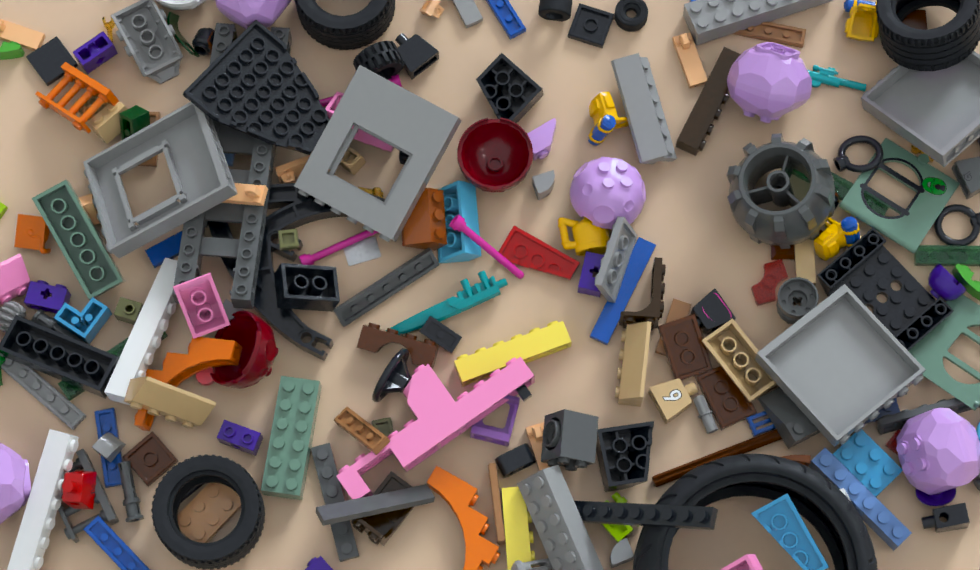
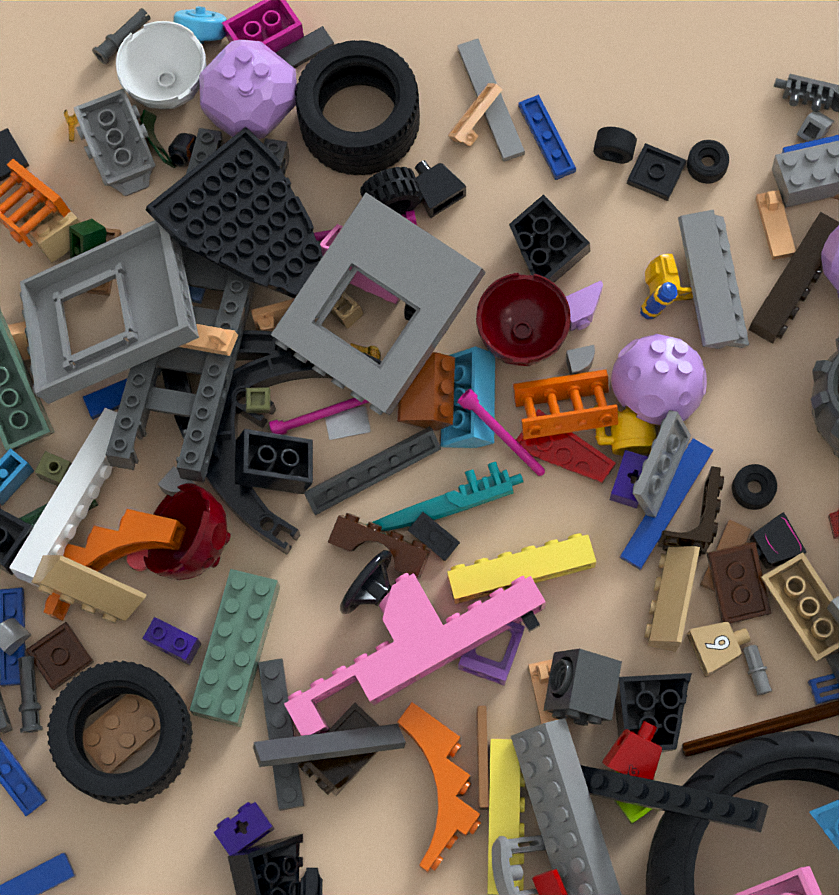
camera: 10 degrees right, 0 degrees up
(95, 52) = (50, 151): dark purple brick -> none
(201, 305) = (140, 472): bright pink slope -> none
(361, 430) = (323, 648): medium nougat tile -> none
(383, 425) = (349, 647): olive tile -> none
(515, 460) = (511, 704): black beam -> none
(532, 207) = (564, 388): none -> orange fence
(615, 485) = (635, 753): none -> red torso
(621, 553) = (634, 838): light grey brick -> none
(693, 260) = (761, 475): none -> black tyre
(724, 398) = (783, 651): reddish brown tile -> none

